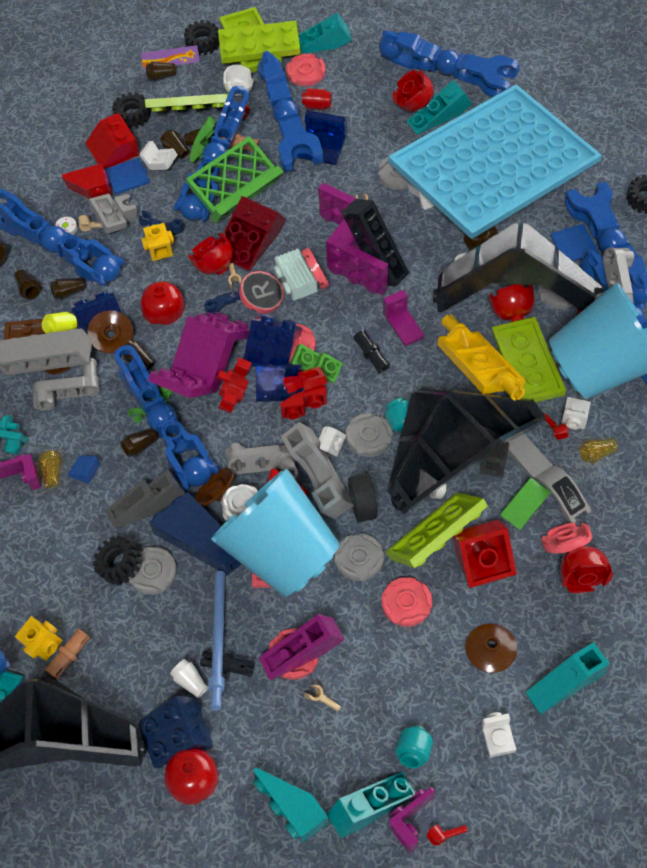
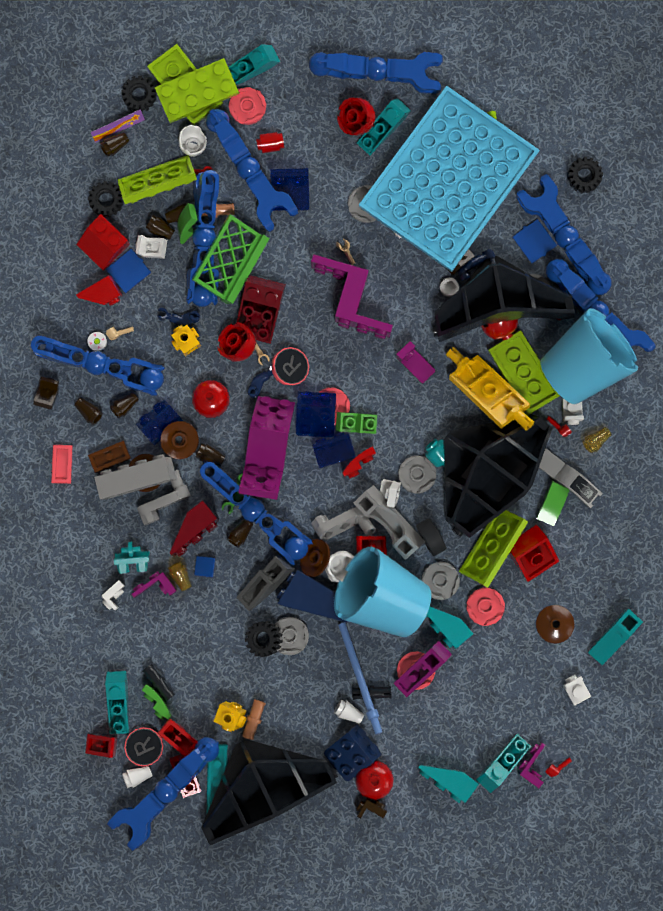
camera: 20 degrees left, 25 degrees up
(59, 322) = (135, 446): neon yellow brick -> none
(83, 417) = (196, 523): none -> dark red slope
(113, 214) = (133, 319): light grey plate -> none
(179, 811) = (376, 807): none -> dark brown bracket
(233, 385) = (297, 462): red piece -> none
(295, 274) = (312, 340): light aqua brick -> none
(305, 379) = (357, 444): red plate -> none
(315, 268) = (329, 333): coral tile -> none
(321, 697) = (444, 697): tan hand -> none
(353, 608) = (451, 627): none -> teal slope
(371, 351) = (397, 398): black pin -> none
(374, 237) = (376, 305): black brick -> none
(414, 747) = (521, 716): teal head -> none
(566, 538) = (590, 526): coral tile -> none
(585, 568) = (608, 547): red cylinder -> none
(616, 267) = (582, 289): light grey beam -> none

